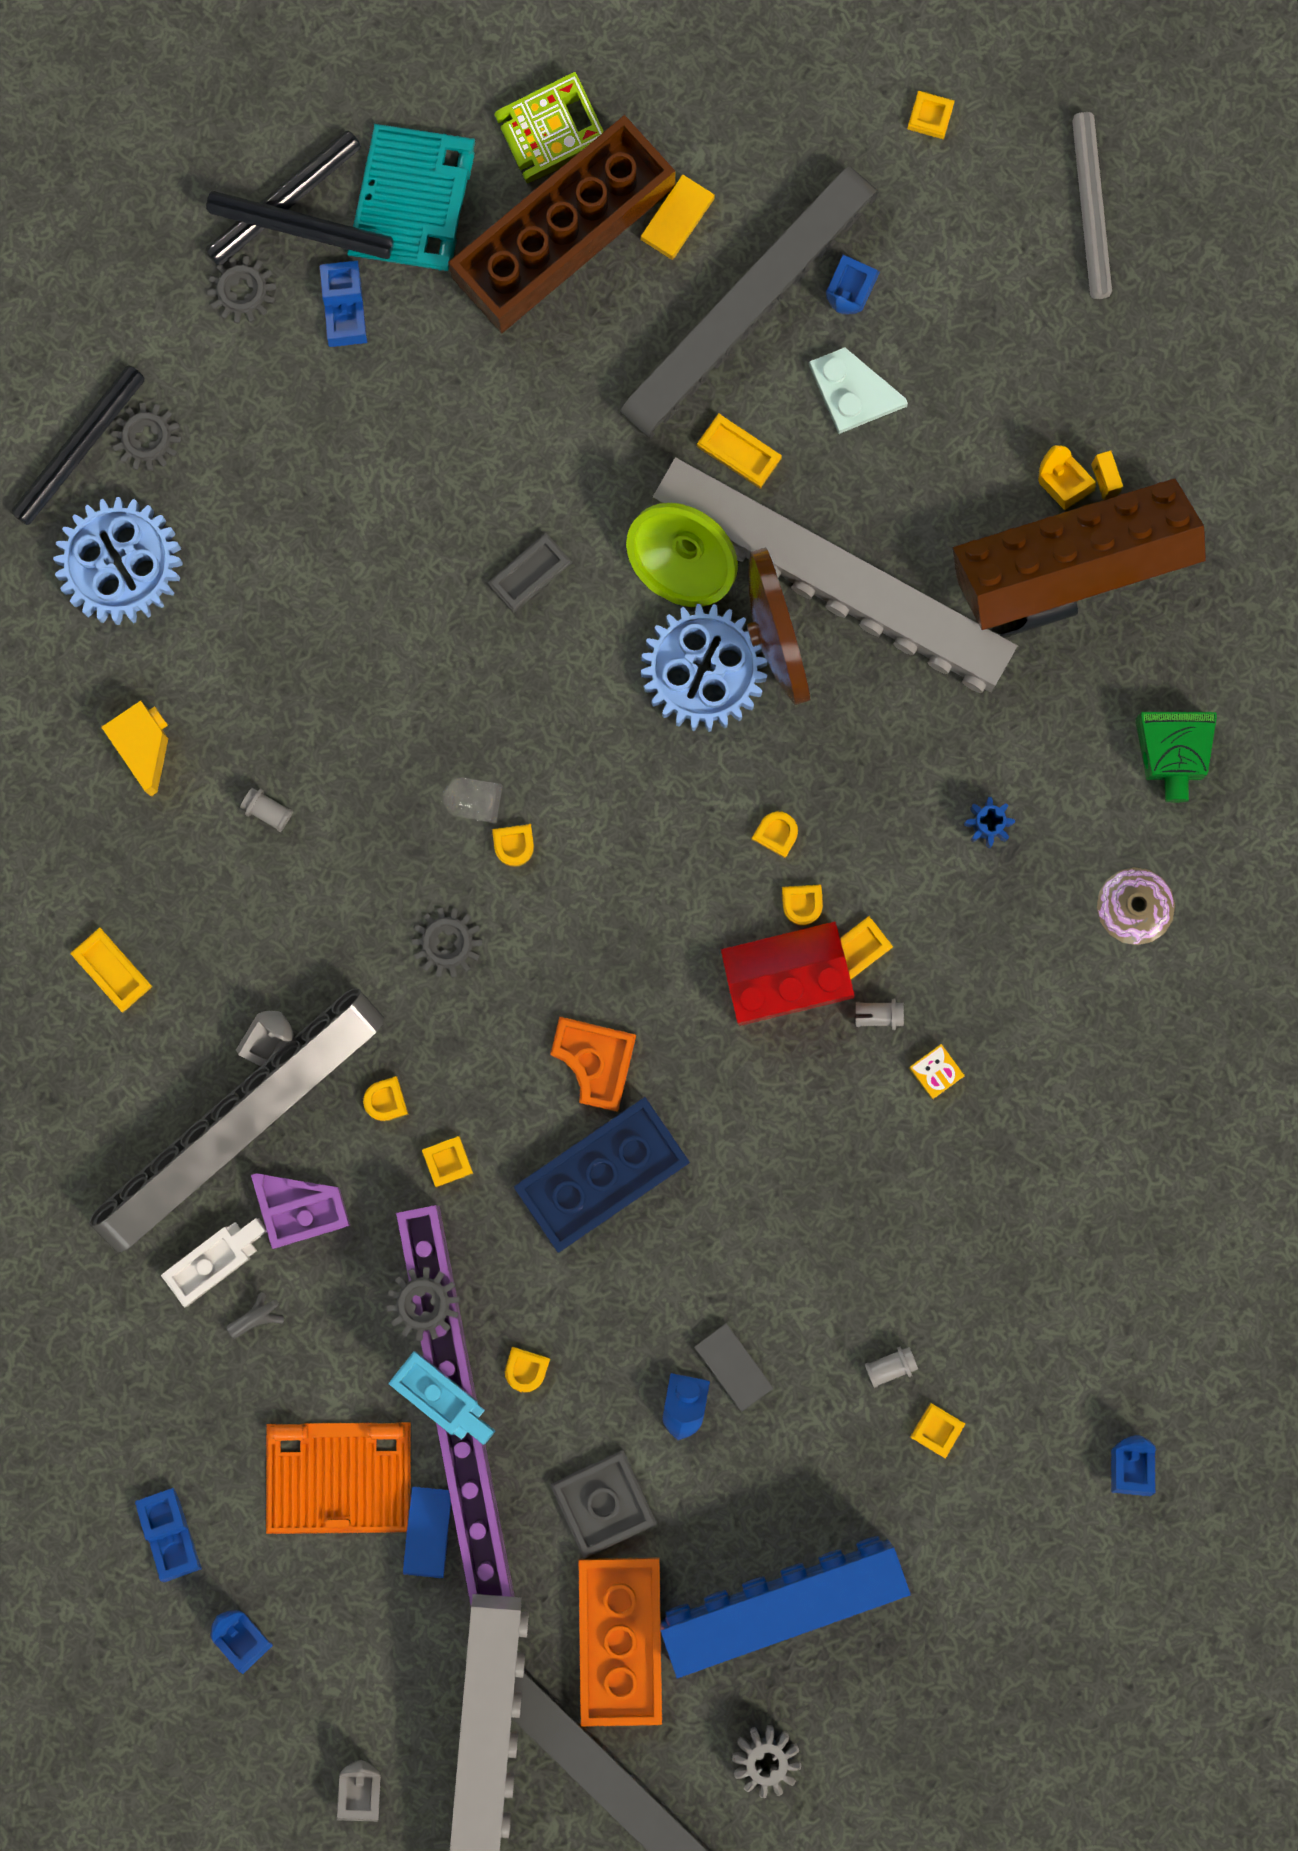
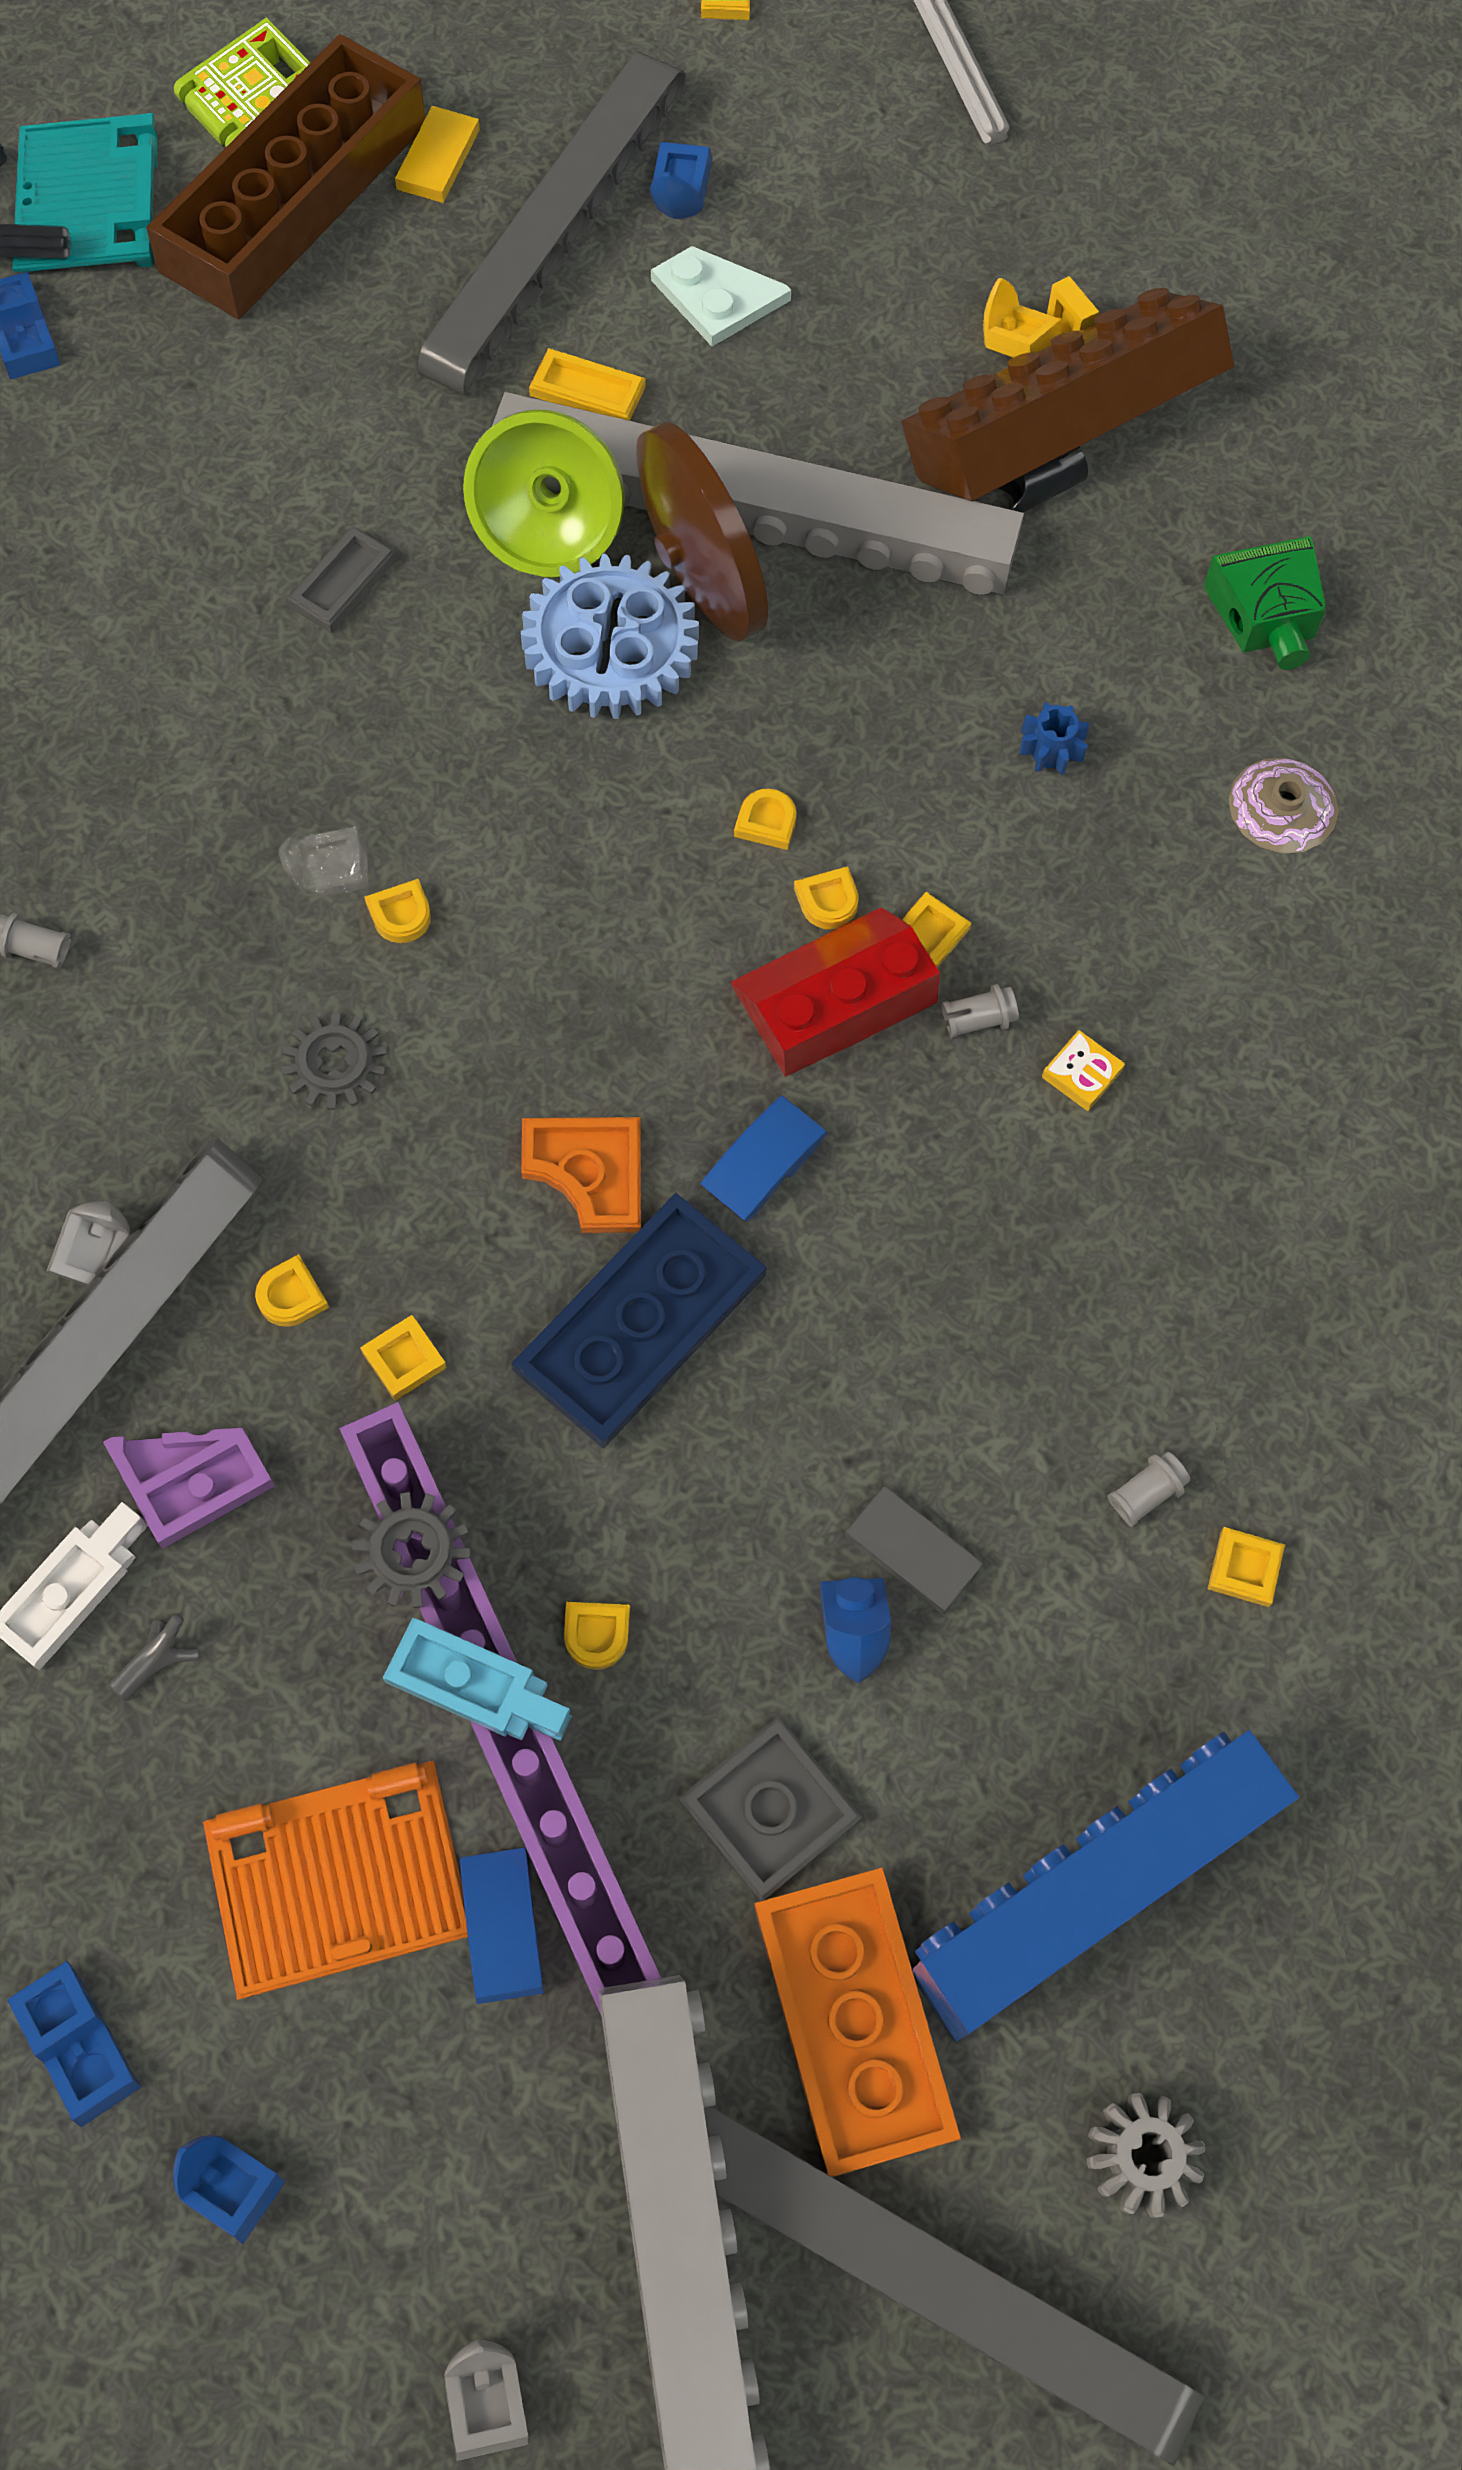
camera: 20 degrees left, 15 degrees down
(709, 1083) = (763, 1158): none -> blue slope

